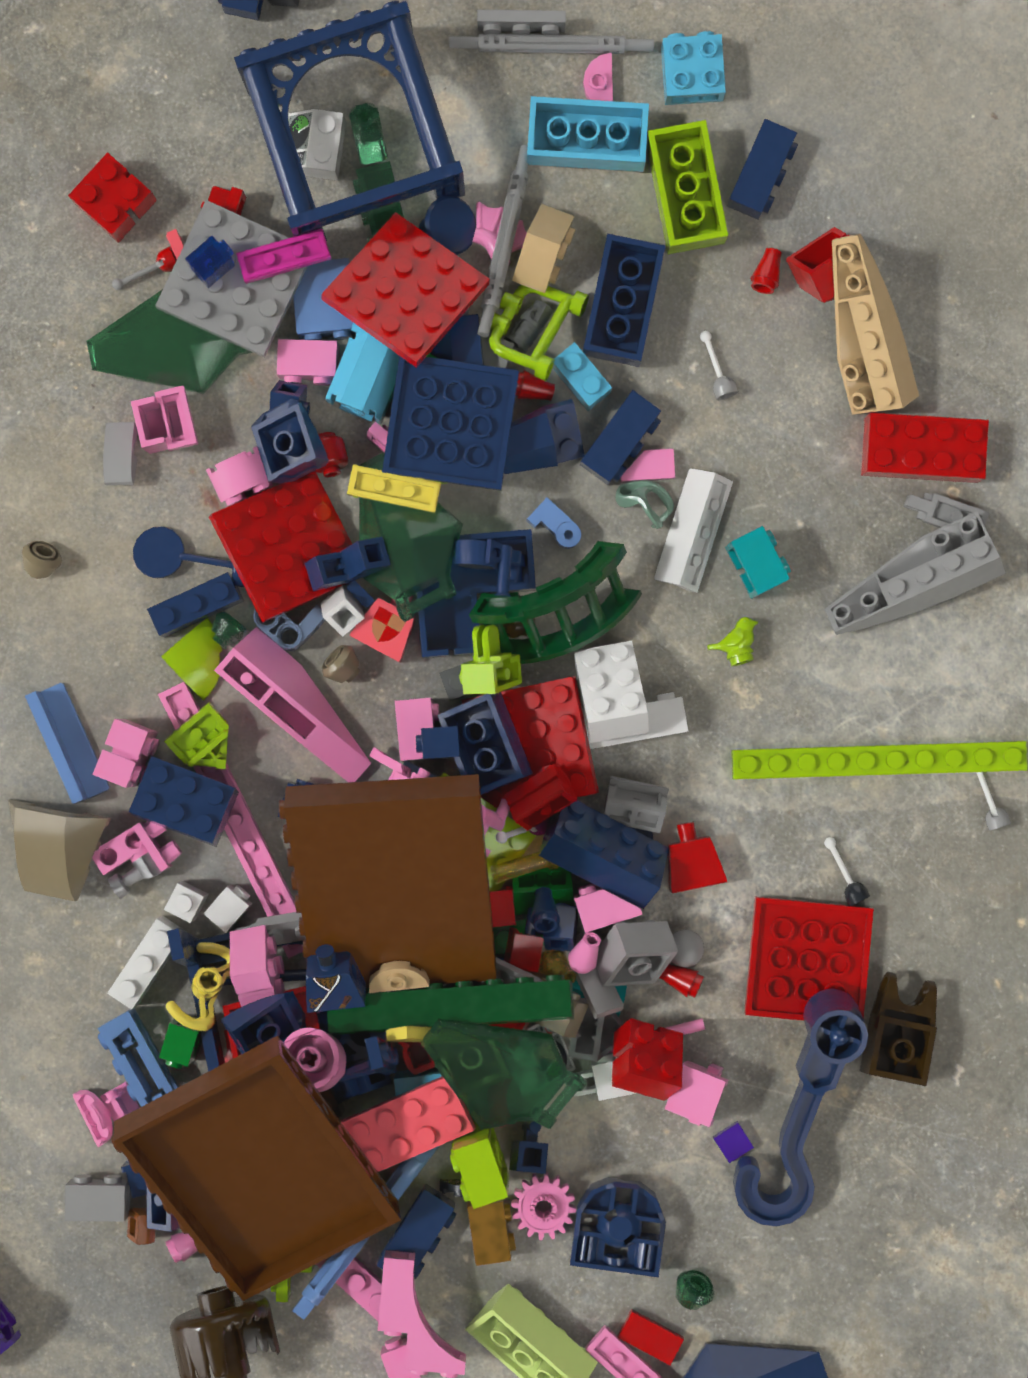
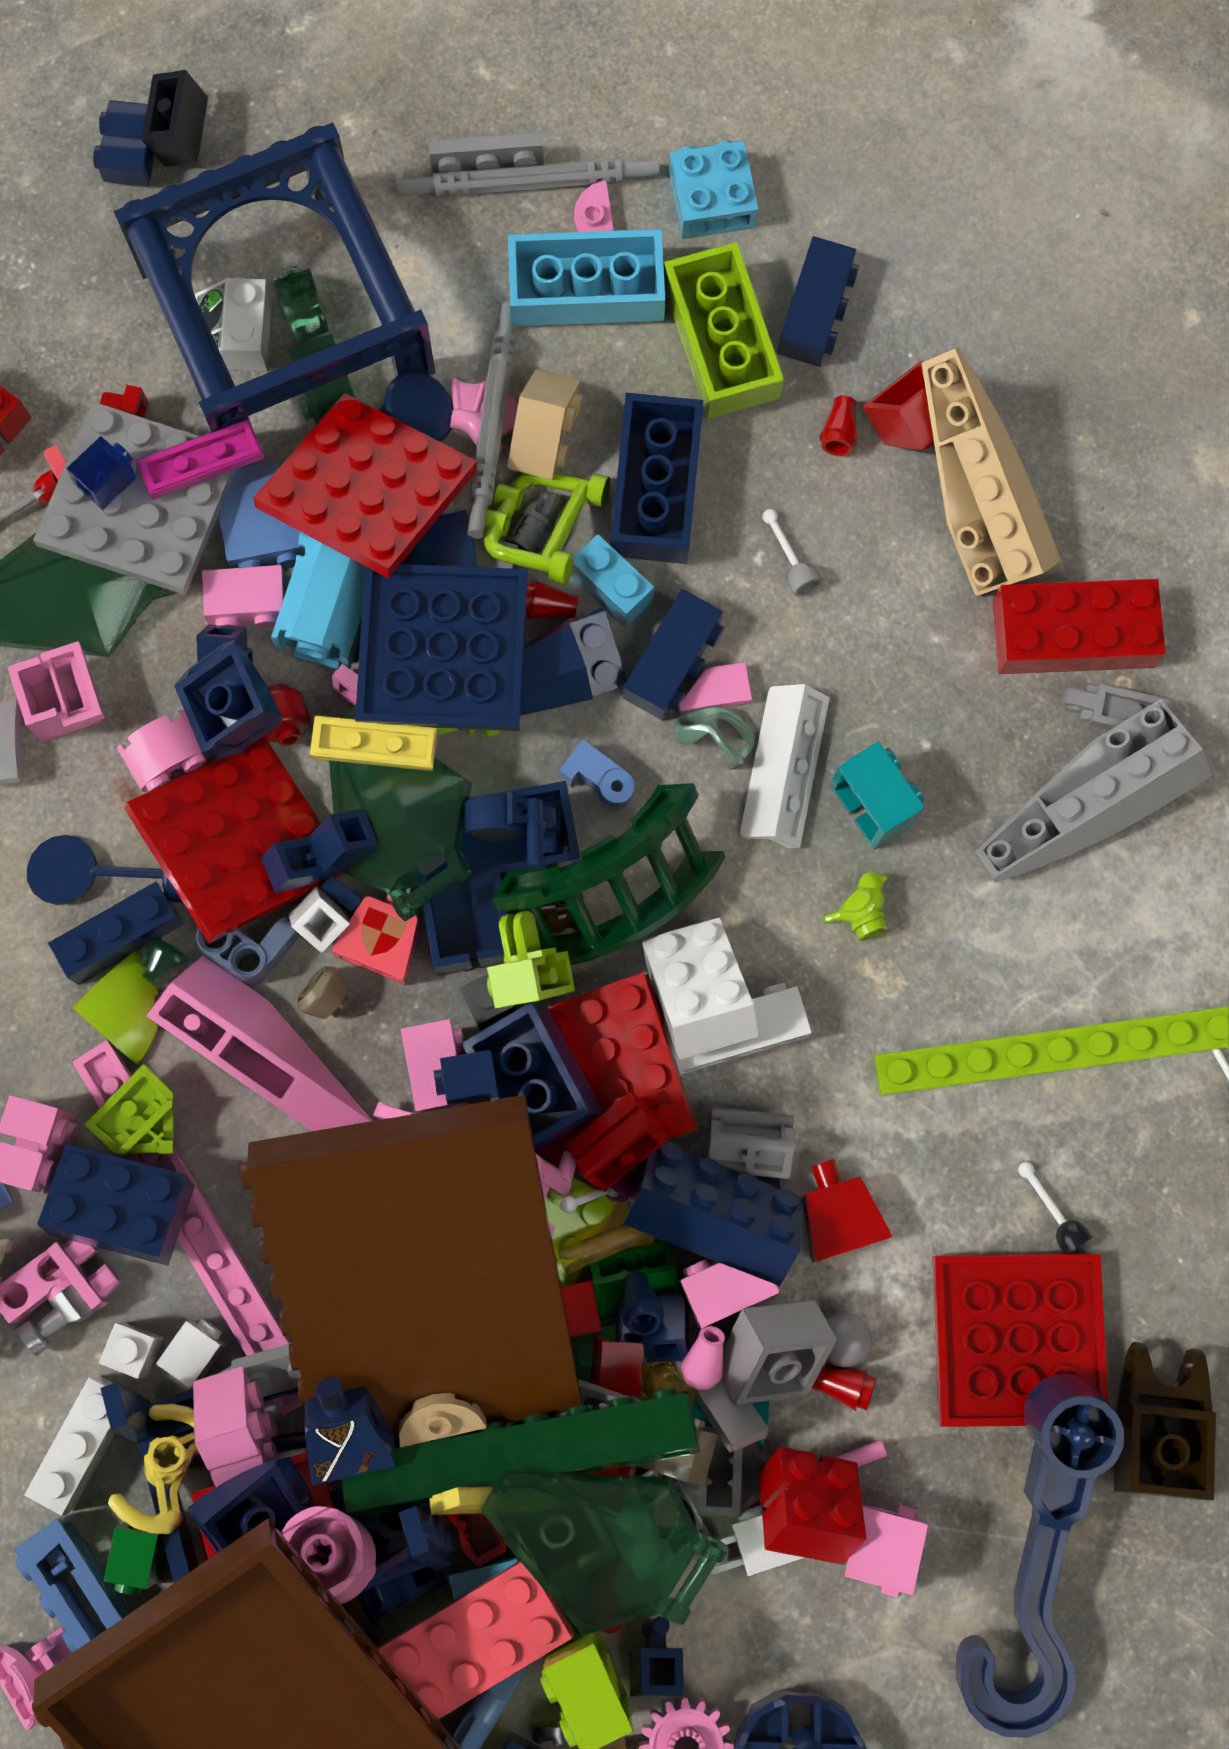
camera: 10 degrees left, 10 degrees down
(733, 1142) = (948, 1617): dark purple tile -> none

